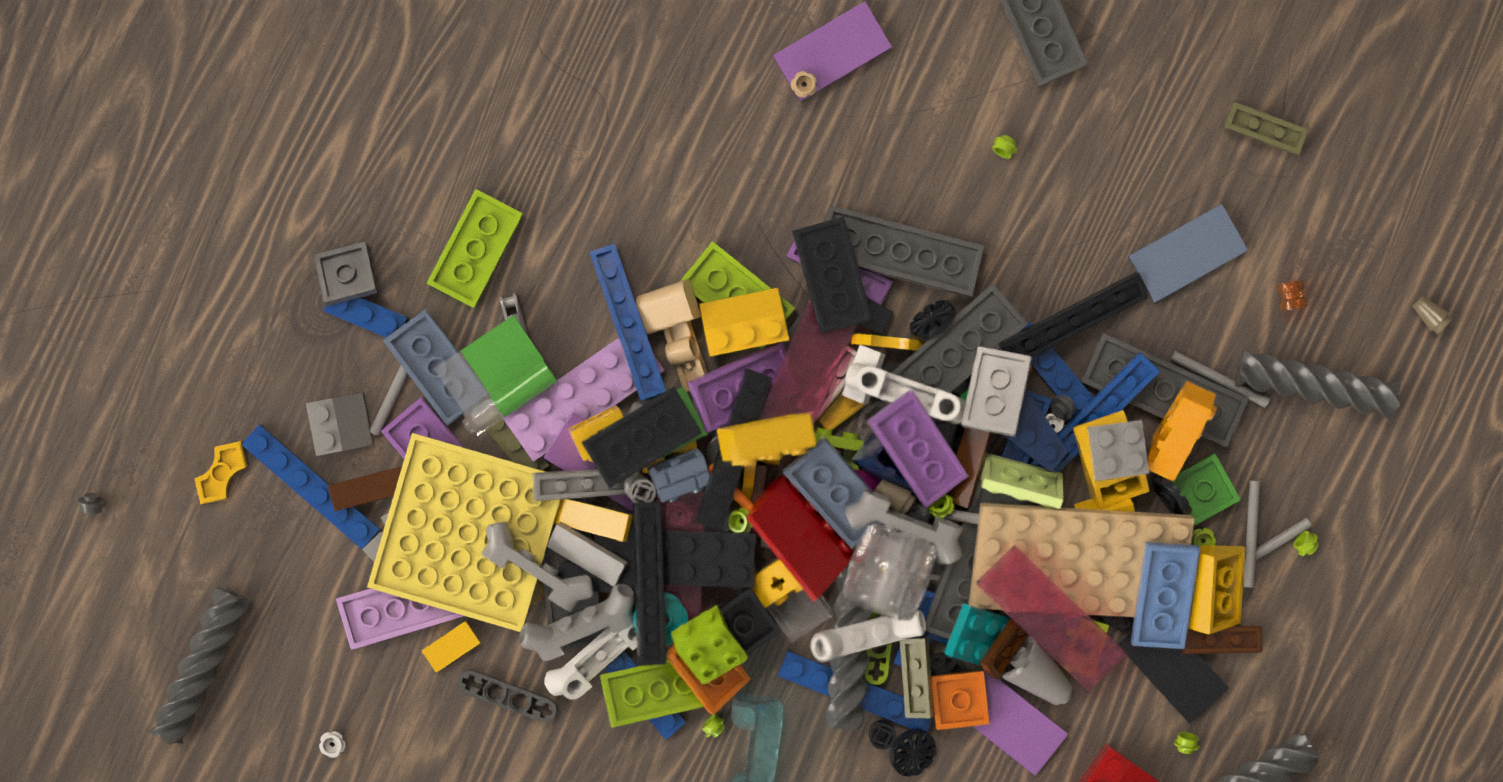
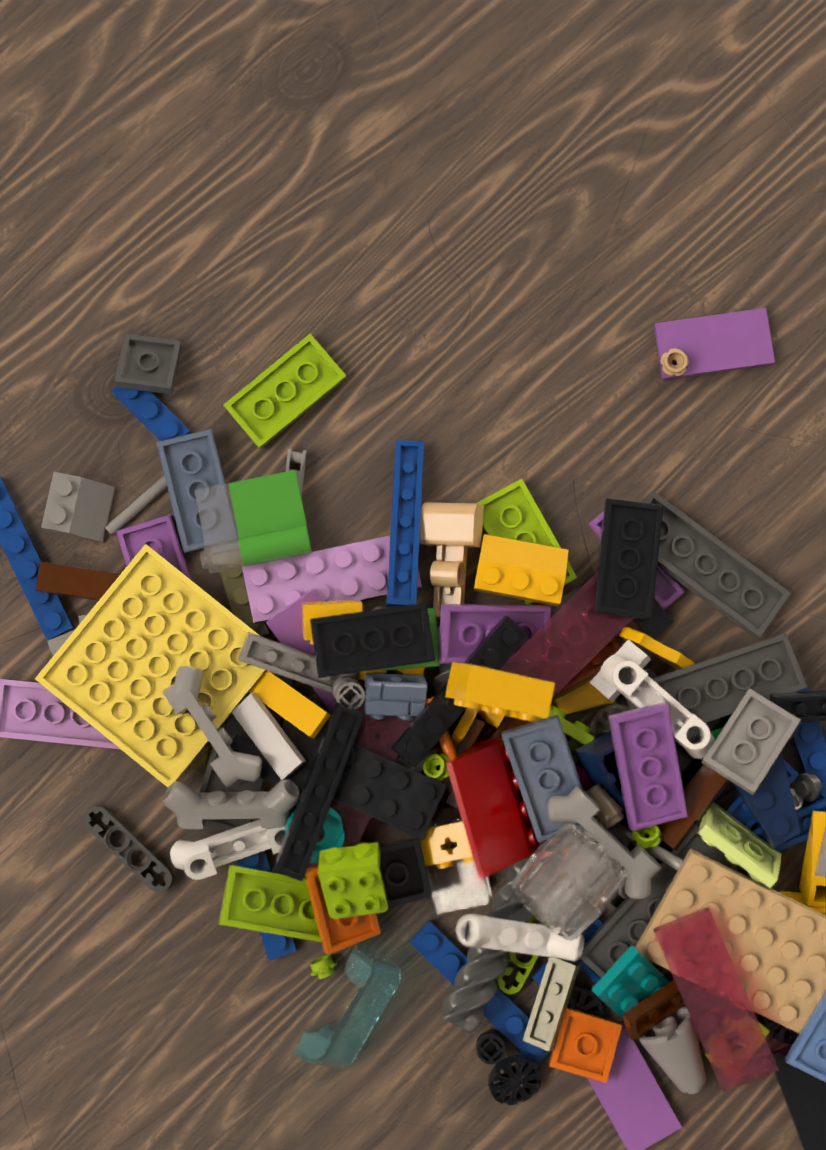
camera: 30 degrees right, 5 degrees down
(451, 646) = (93, 774): yellow tile -> none
(932, 320) = (710, 645): black wheel -> none

